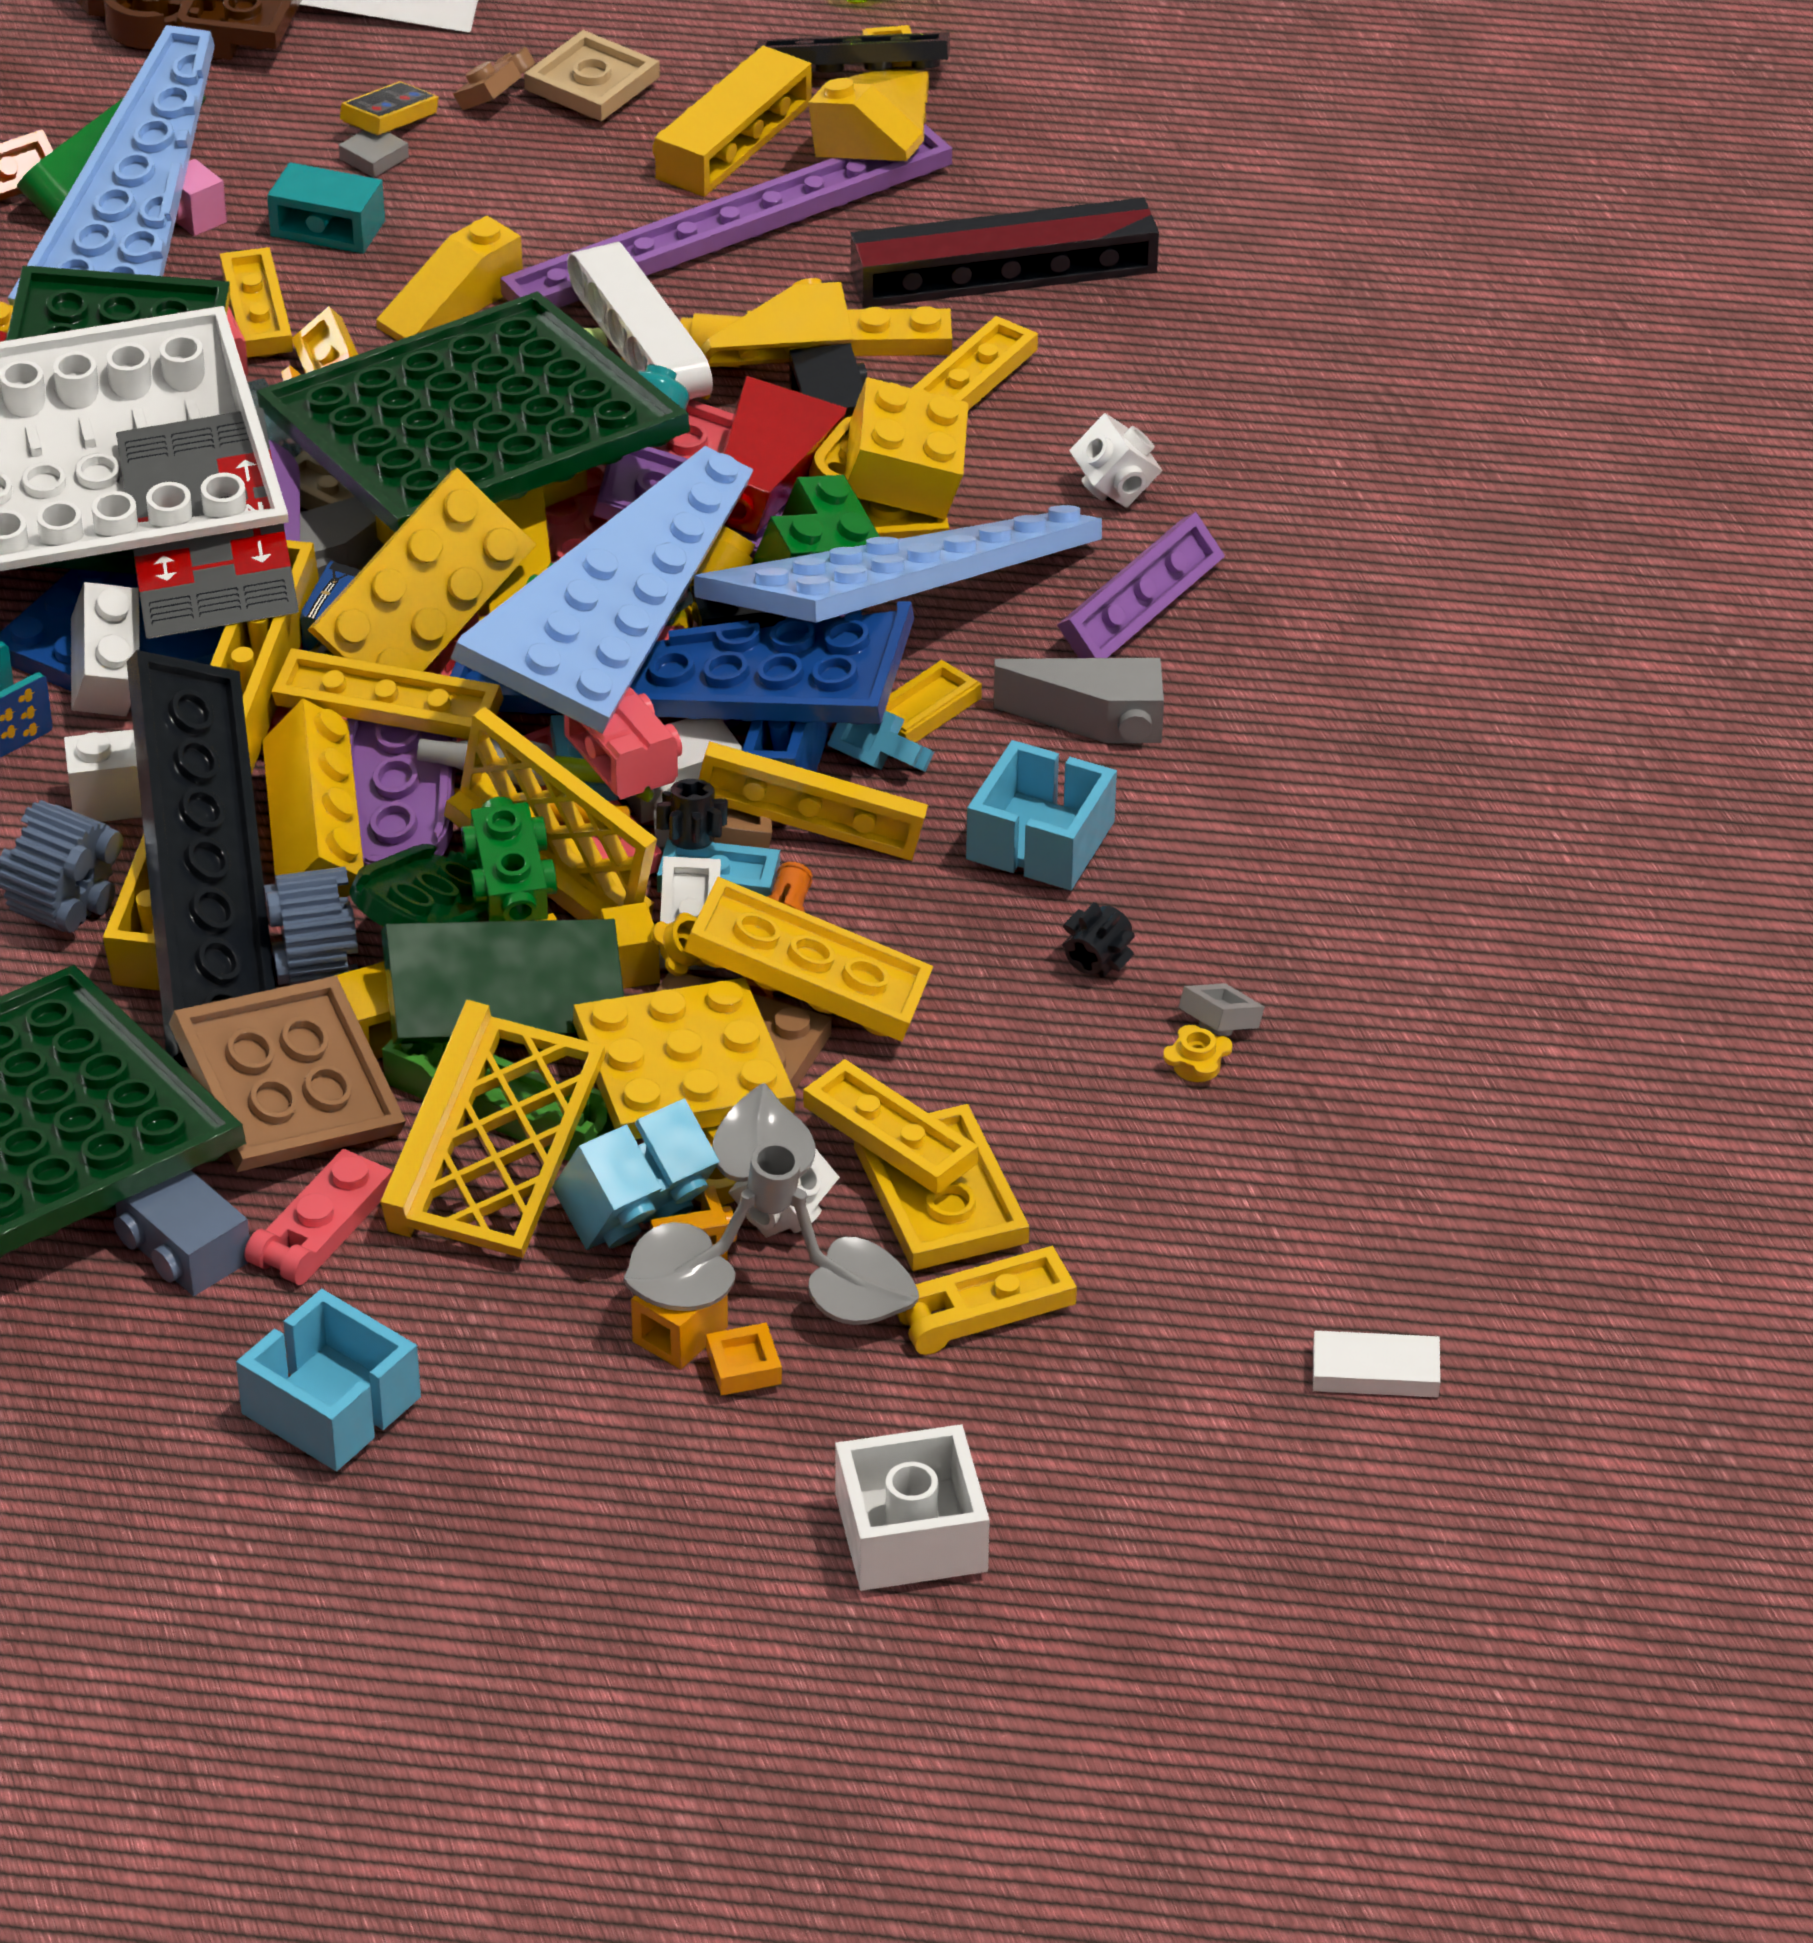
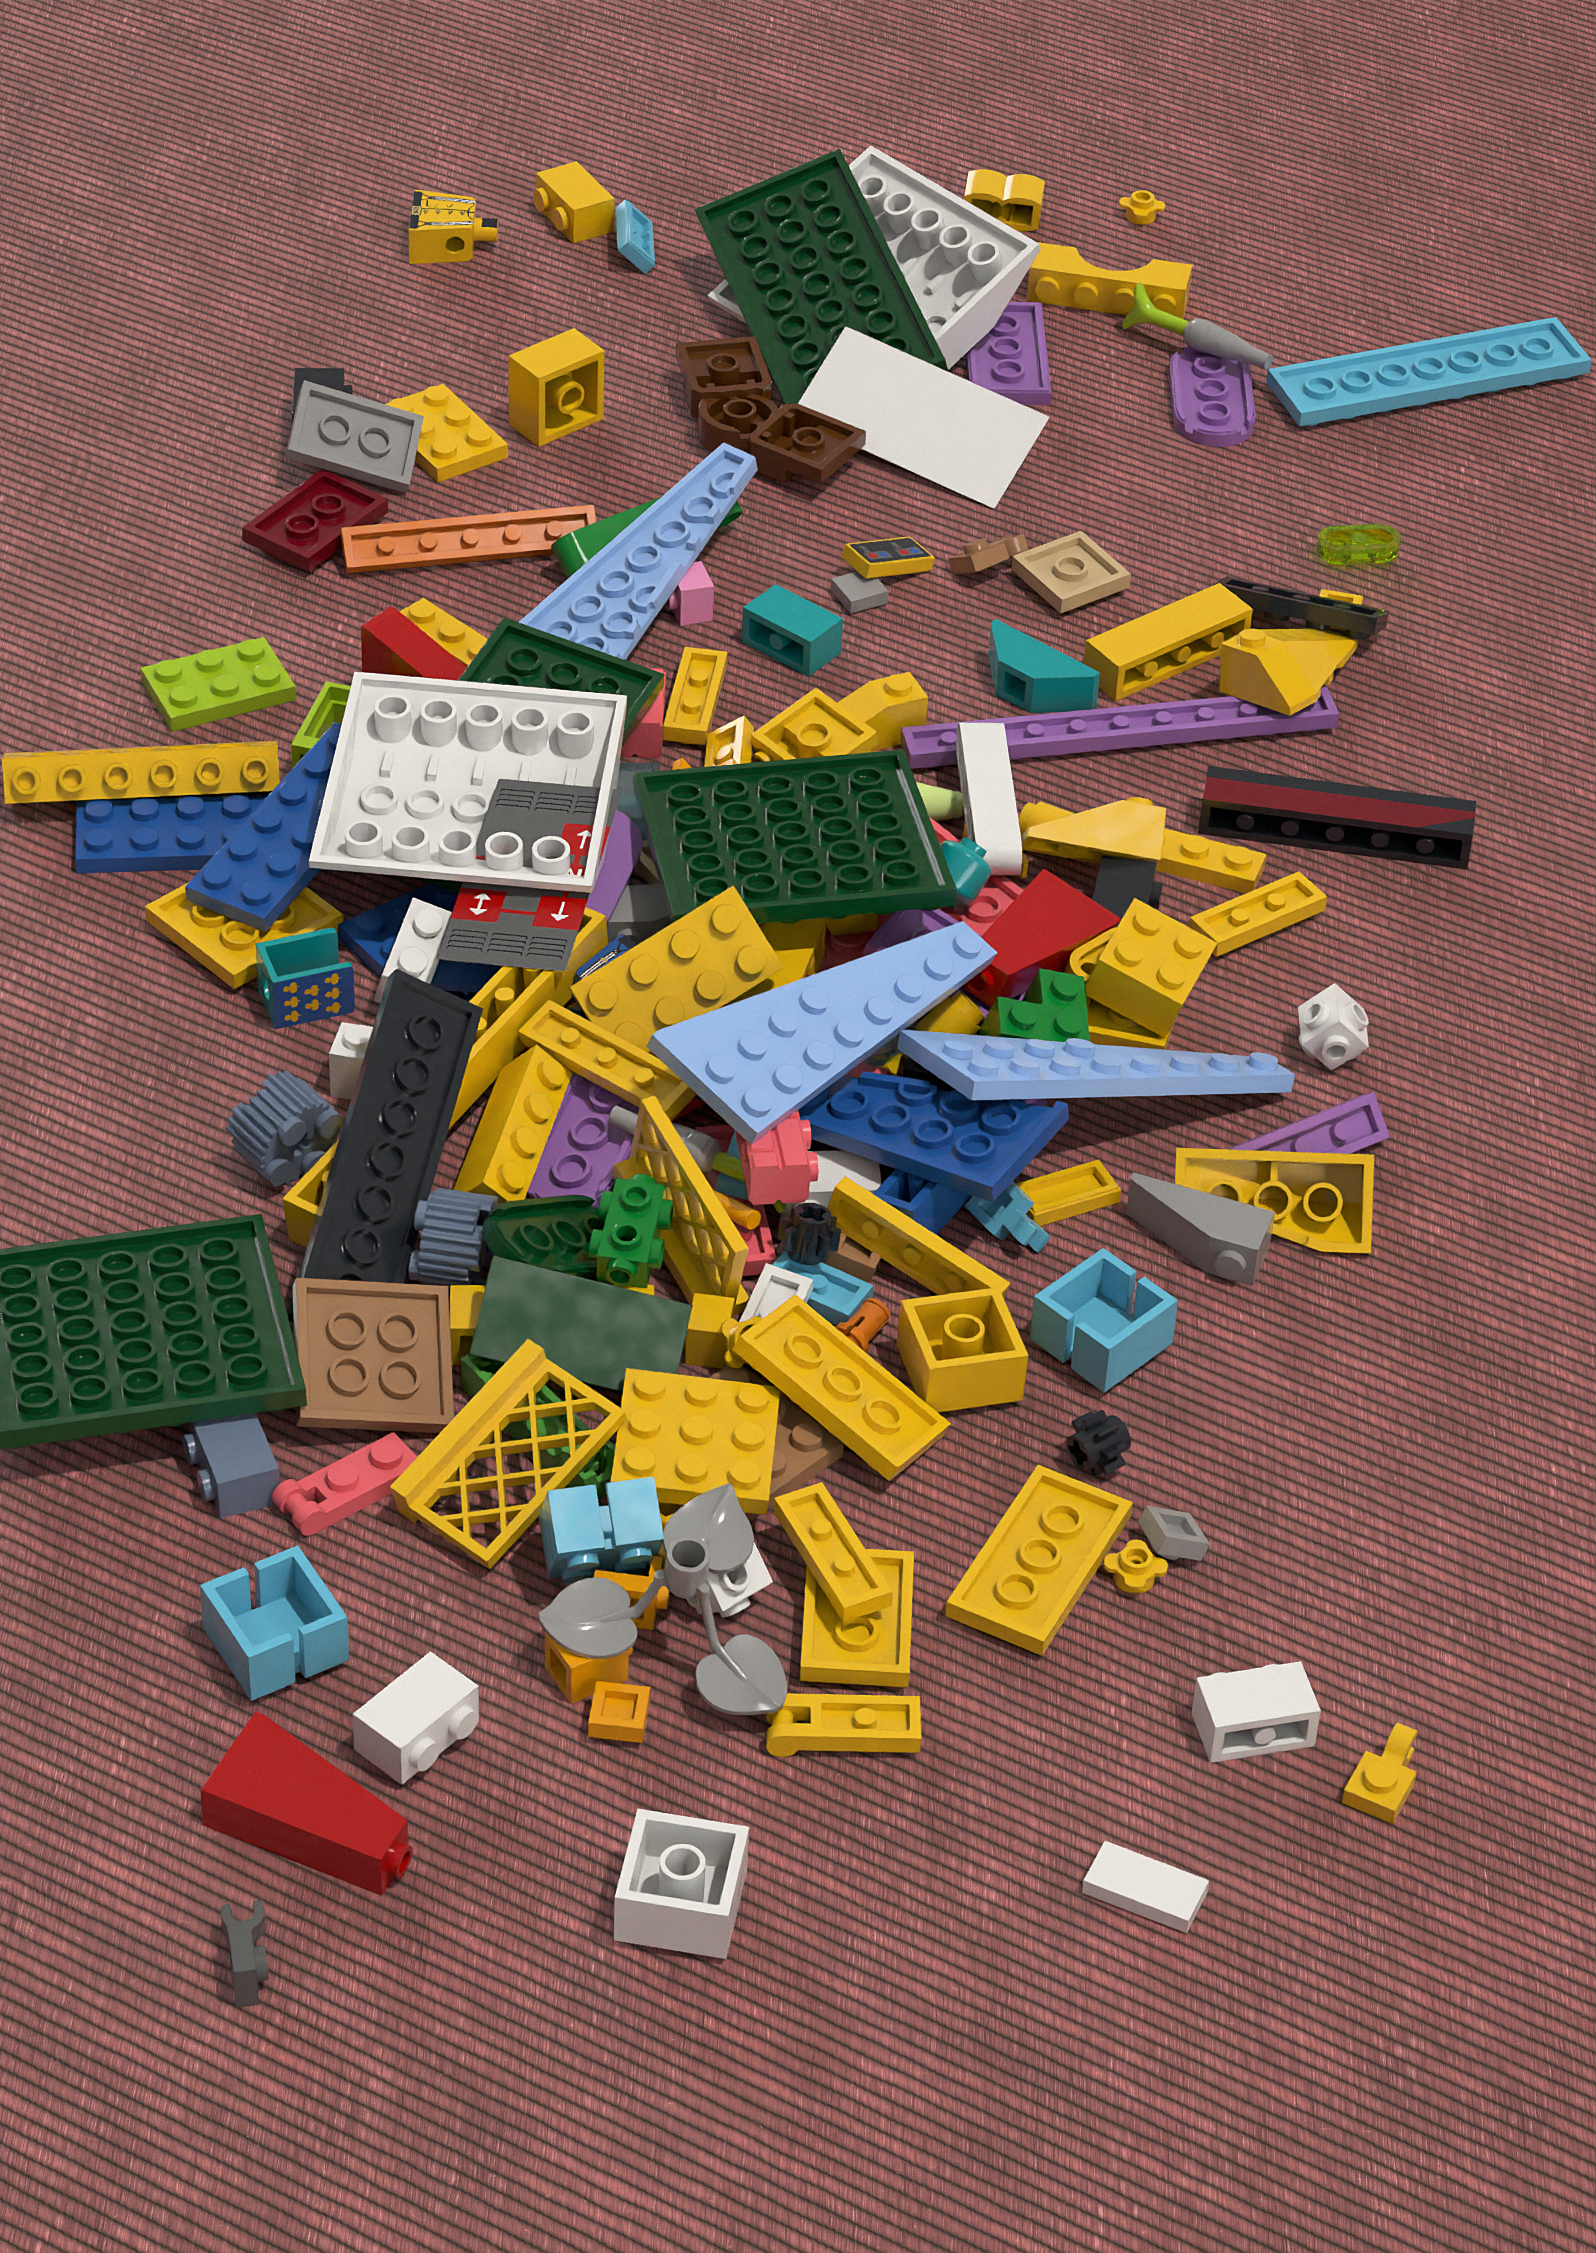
camera: 20 degrees right, 0 degrees up
(412, 301) = (812, 729): none -> yellow plate
(463, 1561) = (304, 1809): none -> red slope
(480, 1735) = (246, 1960): none -> dark grey plate
(536, 1430) = (416, 1718): none -> white brick
(613, 187) = (1037, 674): none -> teal slope
(911, 886) = (962, 1350): none -> yellow brick
(1097, 1075) = (1039, 1560): none -> yellow plate
(1194, 627) = (1315, 1196): none -> yellow wedge
(1398, 1157) = (1255, 1711): none -> white brick
(1554, 1189) = (1384, 1782): none -> yellow plate

